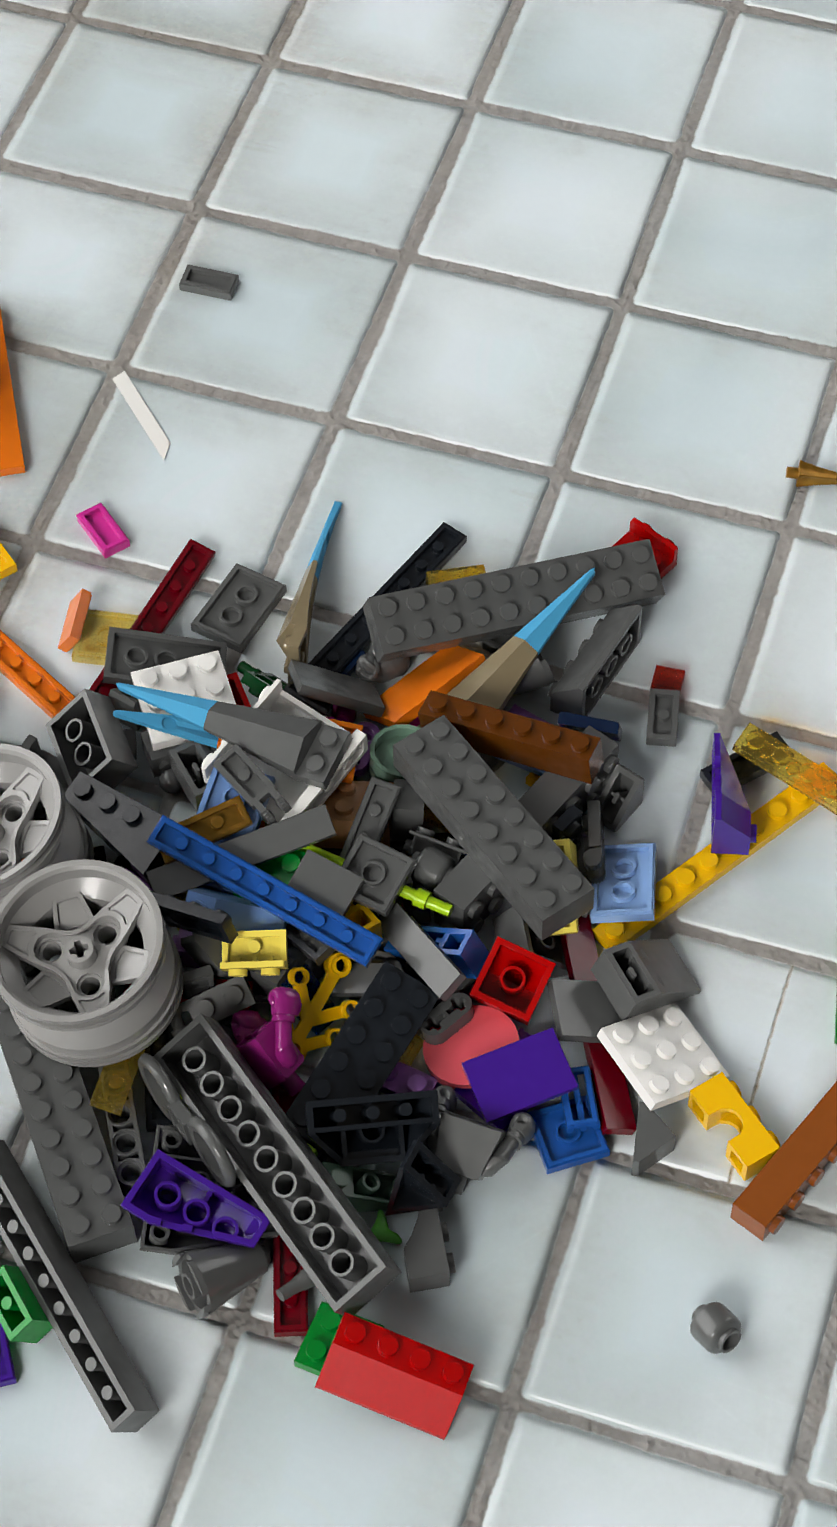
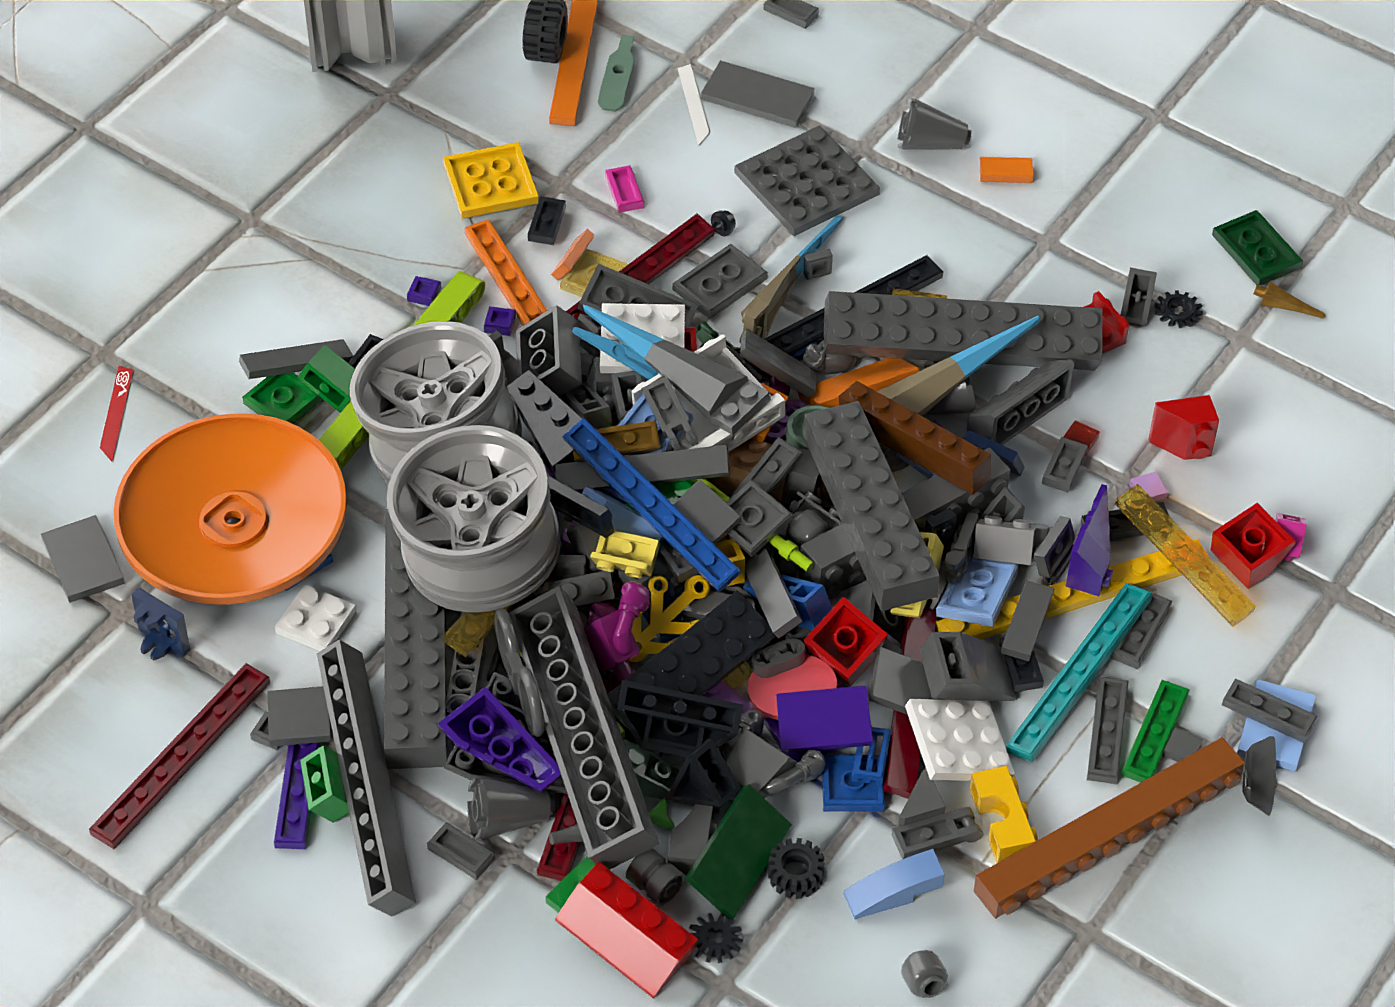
camera: 15 degrees right, 5 degrees down
(21, 716) = (500, 320): none -> dark purple tile
(33, 588) = (546, 220): none -> black plate
(52, 415) = (615, 85): none -> sand green piece
(155, 793) = (590, 405): none -> dark grey slope
(185, 1334) = (461, 850): none -> dark grey tile
(206, 386) = (757, 93): none -> dark grey tile
(221, 541) = (723, 222): none -> black plate
(293, 484) = (803, 192): none -> dark grey piece
(335, 563) = (817, 264): none -> dark grey tile
(401, 381) = (931, 129): none -> dark grey cone
(404, 1304) = (655, 876): none -> dark grey wheel
(480, 1250) = (738, 852): none -> dark green tile
(491, 405) = (1006, 169): none -> orange tile
(500, 1350) = (712, 948): none -> black gear
(543, 1230) = (796, 853): none -> black tyre
(639, 819) = (1008, 540): none -> light grey hinge
(651, 1237) = (895, 884): none -> medium blue slope
(672, 1166) = (937, 832): none -> dark grey plate
(674, 511) = (1138, 295): none -> dark grey slope
(687, 903) = (1027, 620): none -> dark grey tile
(688, 817) = (1055, 551): none -> dark grey plate
(694, 950) = (1023, 674): none -> black plate
(709, 506) = (1189, 313): none -> black gear
(755, 714) = (1152, 485): none -> lavender tile
(755, 945) = (1078, 673): none -> teal tile
(773, 426) = (1257, 248): none -> dark green plate
(773, 644) = (1185, 427): none -> red slope
(800, 877) = (1142, 633): none -> dark grey tile
(804, 998) = (1107, 730): none -> dark grey tile

